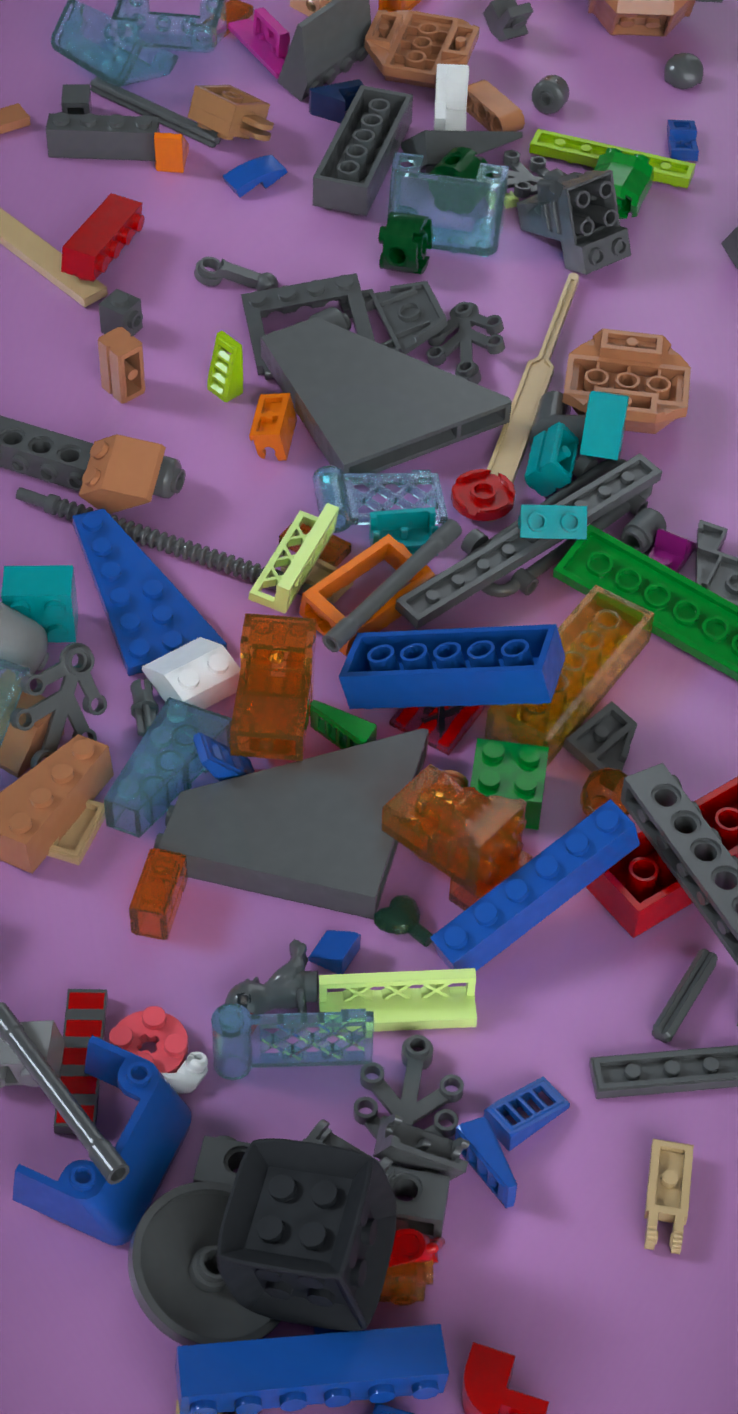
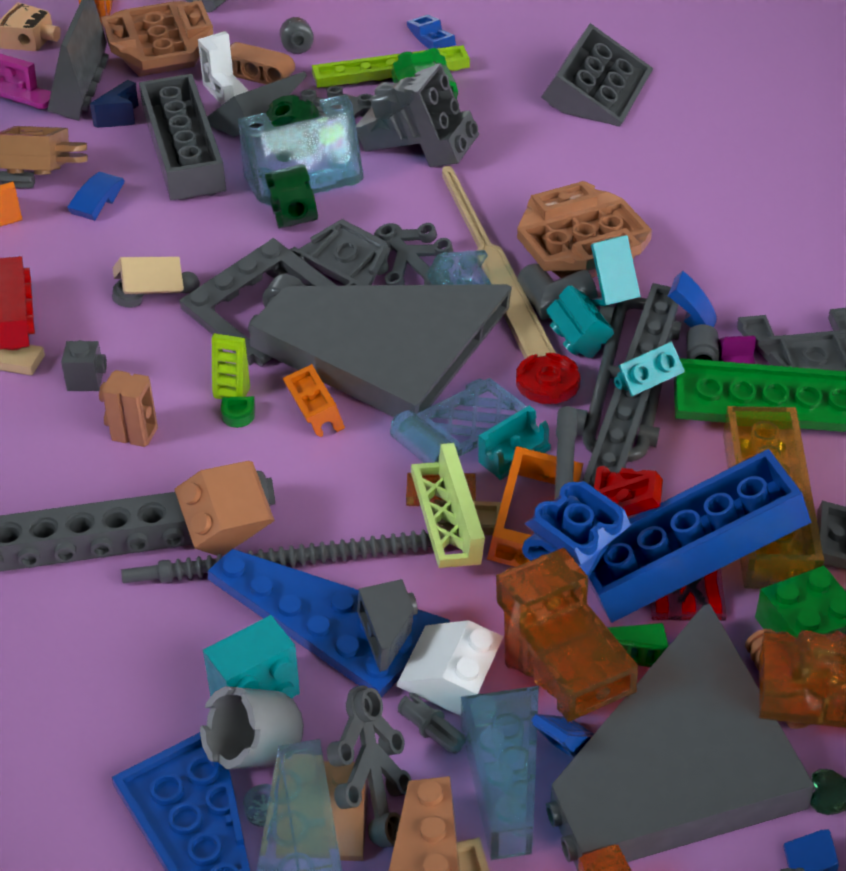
camera: 30 degrees left, 5 degrees down
(166, 615) = (387, 618): none -> dark grey slope
(214, 407) = (238, 411): none -> green tile
(232, 262) = (149, 275): none -> tan panel
(347, 615) = (578, 521): none -> blue piece
(429, 609) = (630, 489): none -> red wing
(487, 369) = (458, 268): none -> clear light blue bracket
(665, 488) = (693, 300): none -> blue slope

